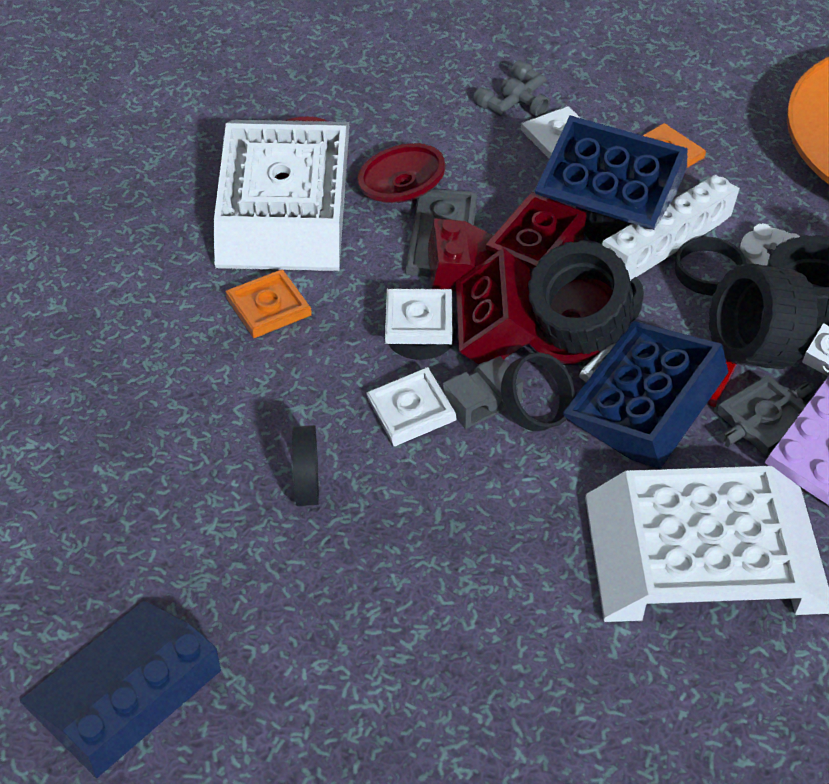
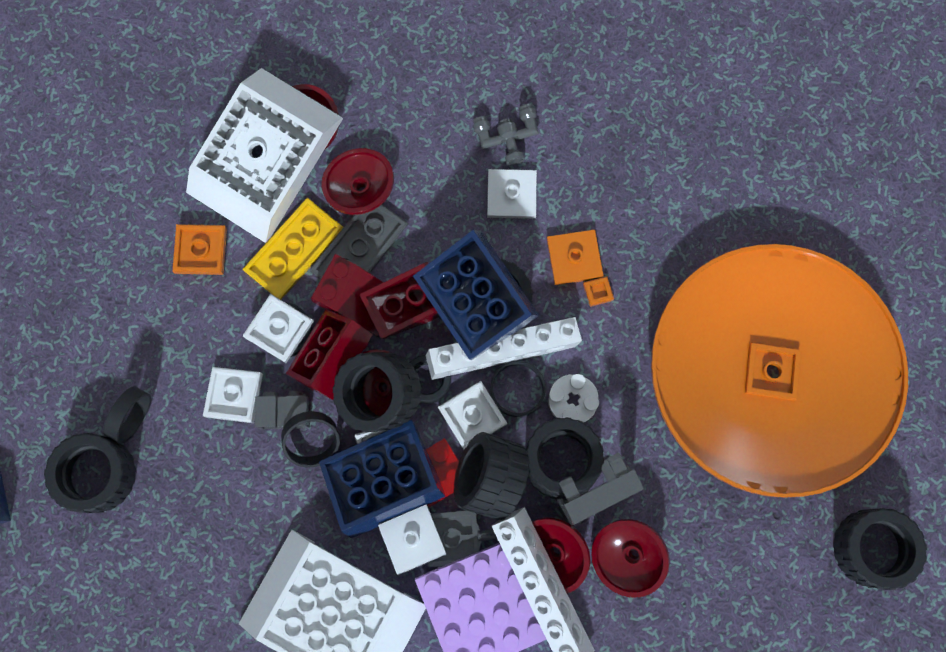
camera: 30 degrees right, 30 degrees up
(300, 585) = (60, 467): none -> black tyre
(371, 262) = (293, 249): none -> yellow tile
(682, 306) = (472, 413): none -> white plate
(711, 164) = (598, 291): none -> orange tile
(730, 425) = (412, 539): none -> white plate

